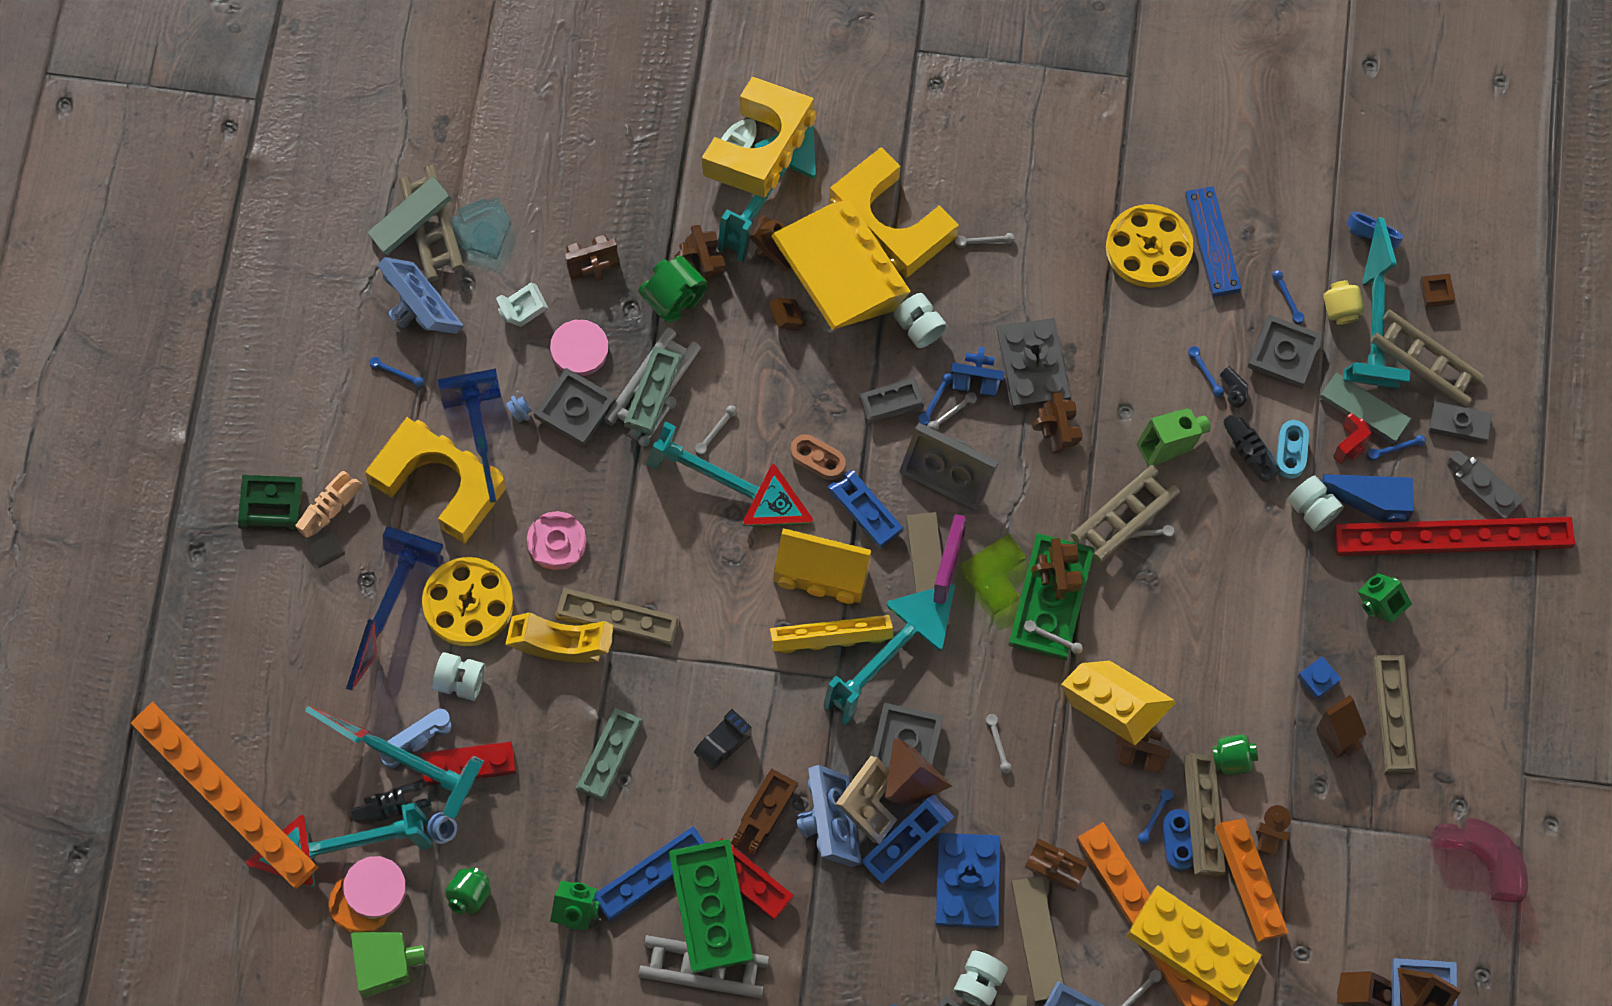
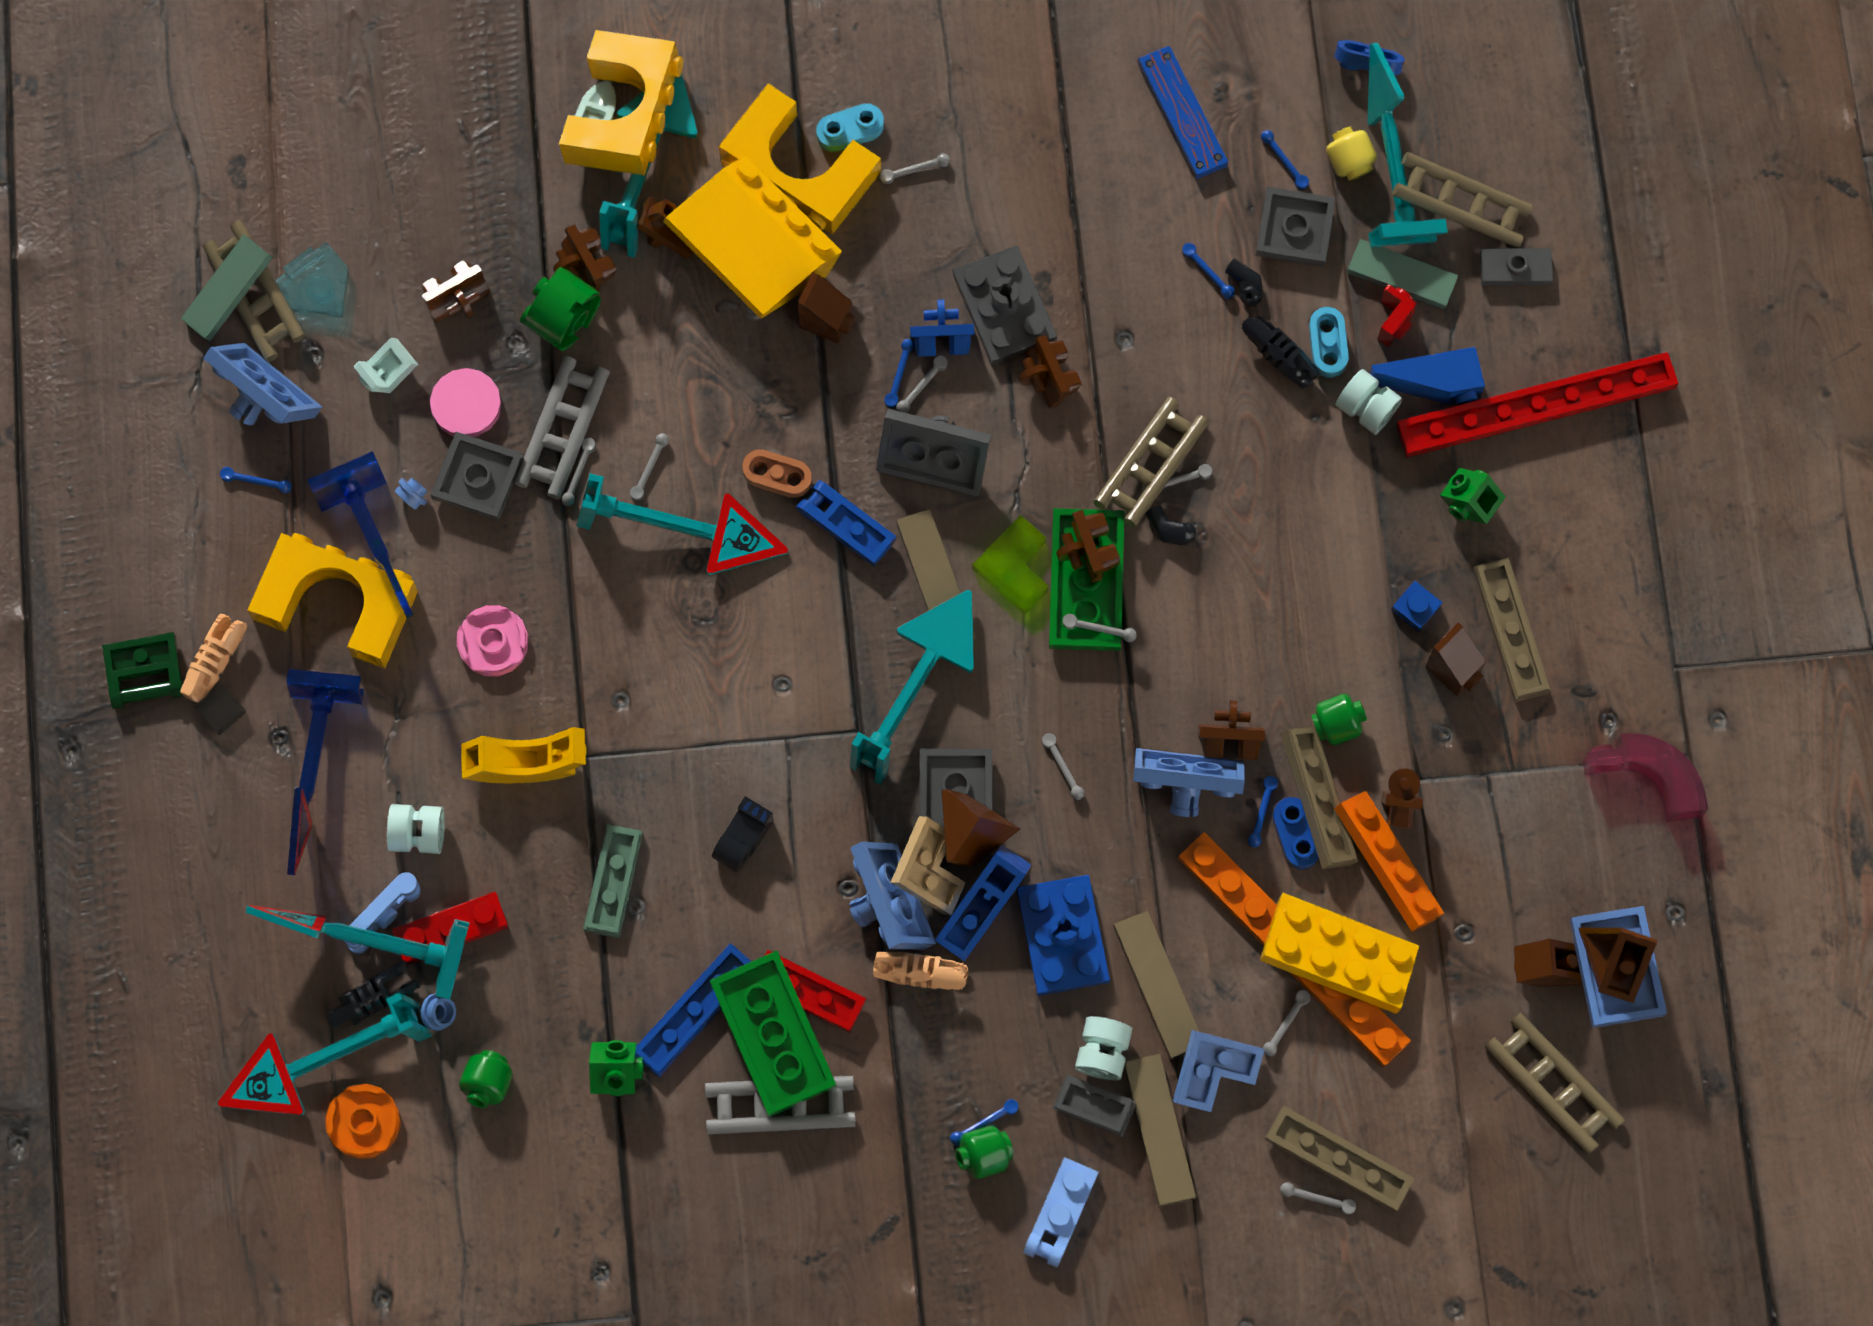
camera: 10 degrees left, 5 degrees up
(224, 795) = (173, 1030): orange plate -> none
(374, 887) = (376, 1099): bright pink tile -> none
(383, 961) = (406, 1183): bright green torso -> none
(459, 590) = (391, 725): yellow wedge -> none
(626, 618) = (595, 715): dark tan tile -> none
(653, 390) = (565, 436): sand green tile -> none
(765, 809) = (810, 904): reddish brown hinge -> none
(787, 313) = (702, 309): reddish brown plate -> none
(821, 566) = (811, 604): yellow slope -> none
(823, 634) = (840, 680): yellow plate -> none
(843, 882) = (920, 970): none -> light nougat hinge
(886, 335) = (825, 310): none -> reddish brown slope
(891, 400) = (848, 386): dark grey plate -> none
(922, 323) = (866, 292): light aqua wheel -> none
(940, 196) = (850, 127): none -> medium azure plate
(949, 559) = (959, 562): magenta tile -> none
(1056, 865) = (1161, 894): reddish brown hips -> none
(1099, 774) = (1188, 776): none -> medium blue plate
(1116, 699) = (1189, 685): yellow slope -> none
(1129, 573) = (1170, 531): none -> black arm
(1153, 256) = (1106, 118): yellow wedge -> none
(1171, 435) = (1185, 357): bright green torso -> none
(1373, 454) = (1423, 326): blue hinge -> none
(1437, 290) = (1457, 114): reddish brown plate -> none
(1484, 486) = (1560, 336): dark grey hinge -> none

